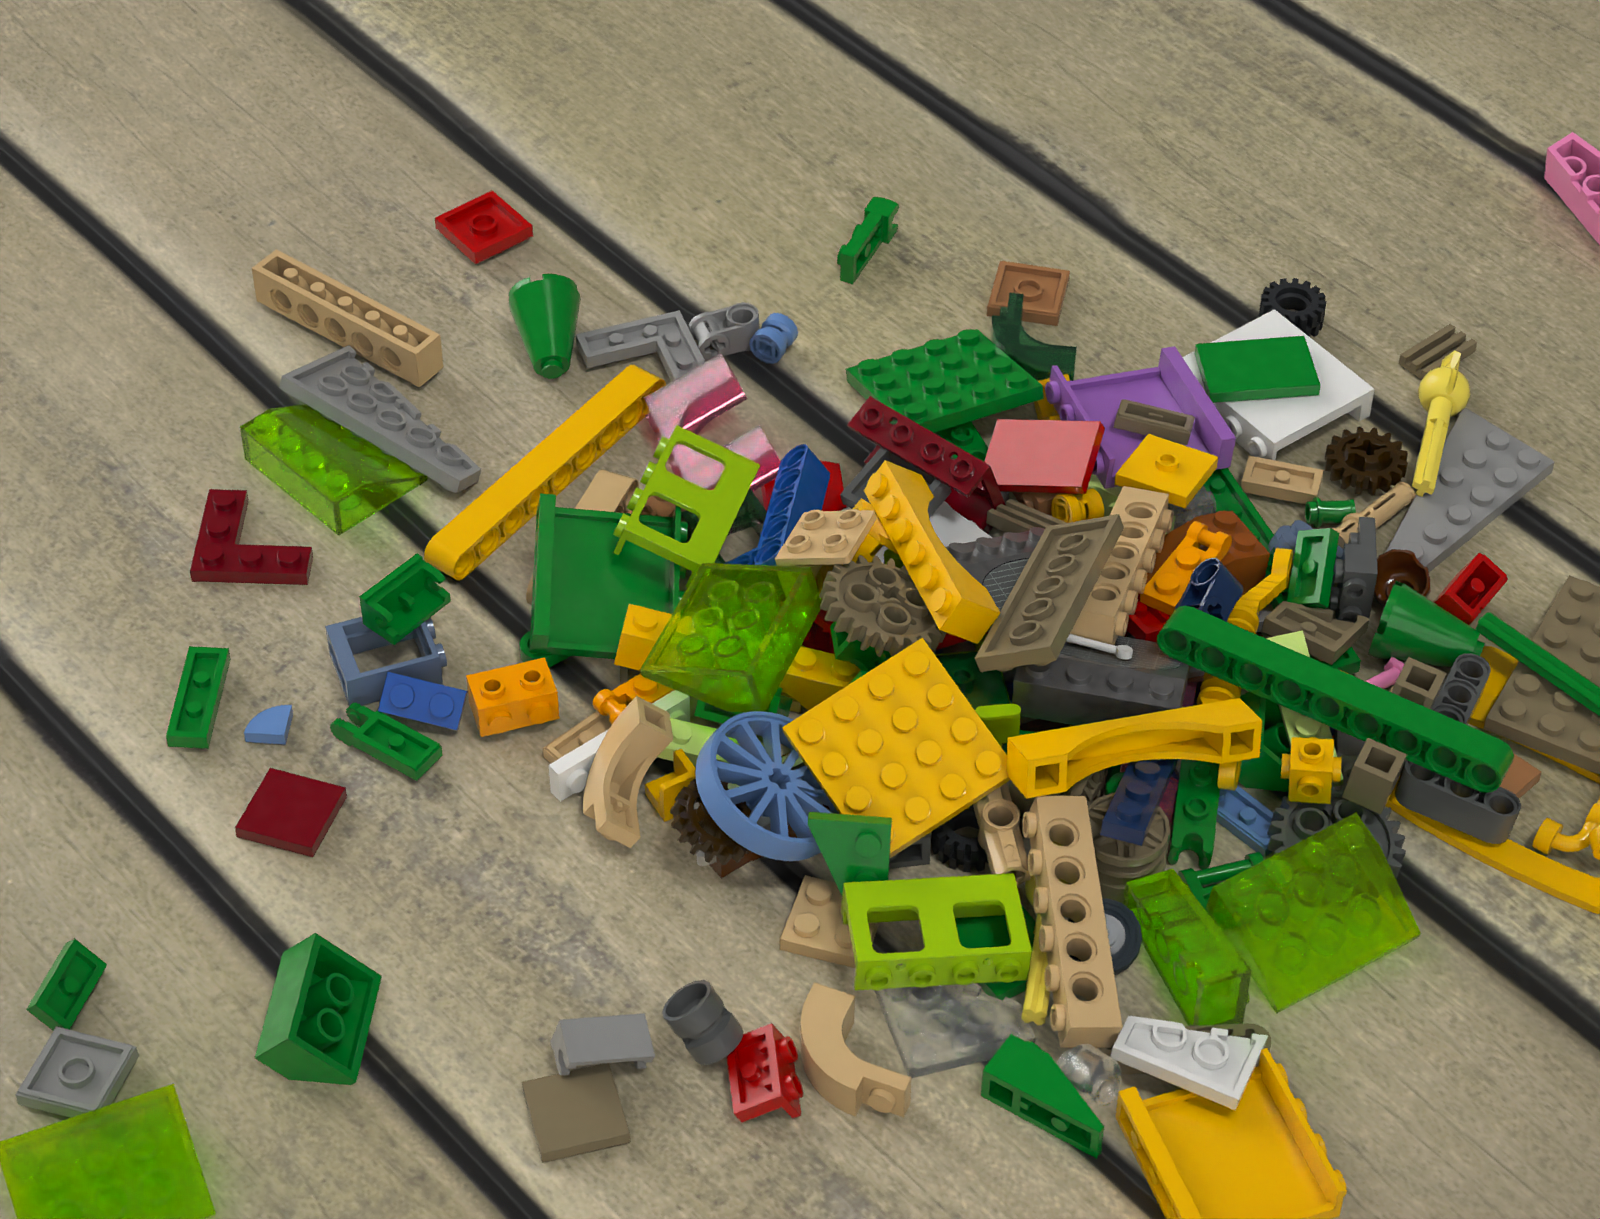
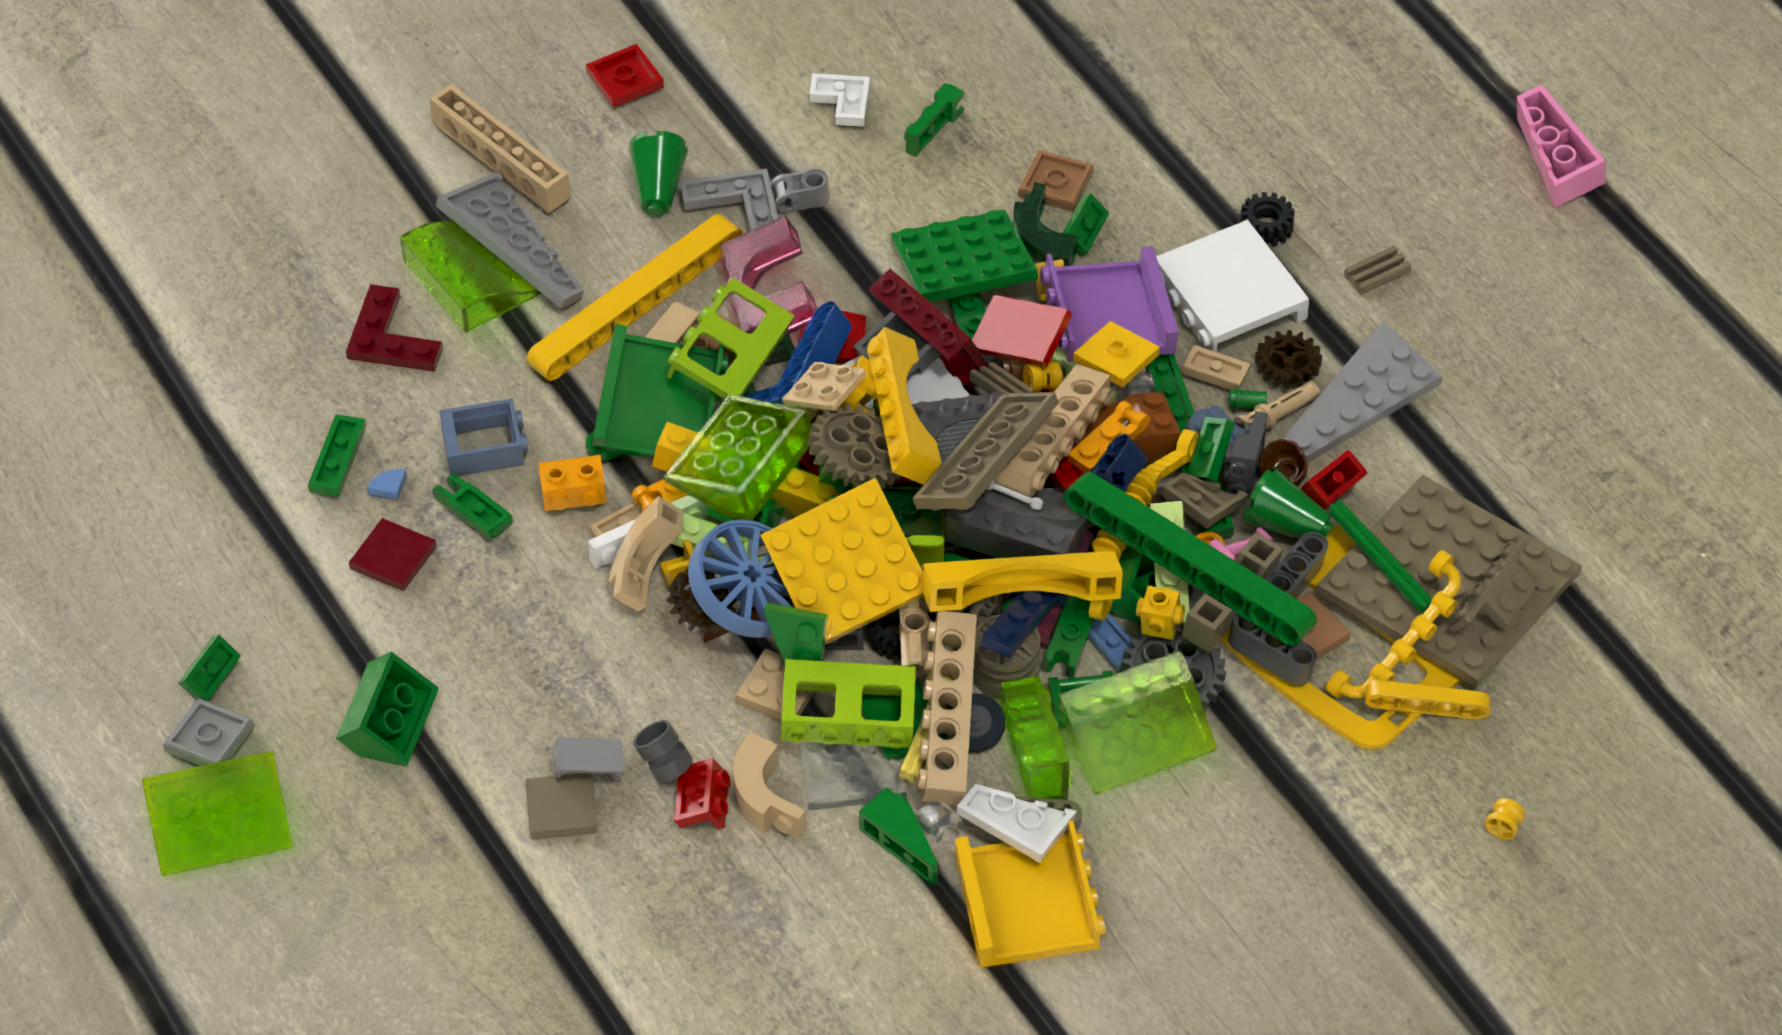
camera: 10 degrees right, 5 degrees up
(404, 599) = (501, 396): green hinge -> none
(422, 701) = (504, 478): blue plate -> none
(753, 218) = (847, 92): none -> white plate
(773, 338) = (834, 204): medium blue wheel -> none
(1081, 331) = (1086, 222): none -> green plate
(1155, 421) = (1120, 309): dark tan tile -> none
(1257, 369) = (1216, 272): green tile -> none
(1443, 395) = (1367, 309): light yellow piece -> none

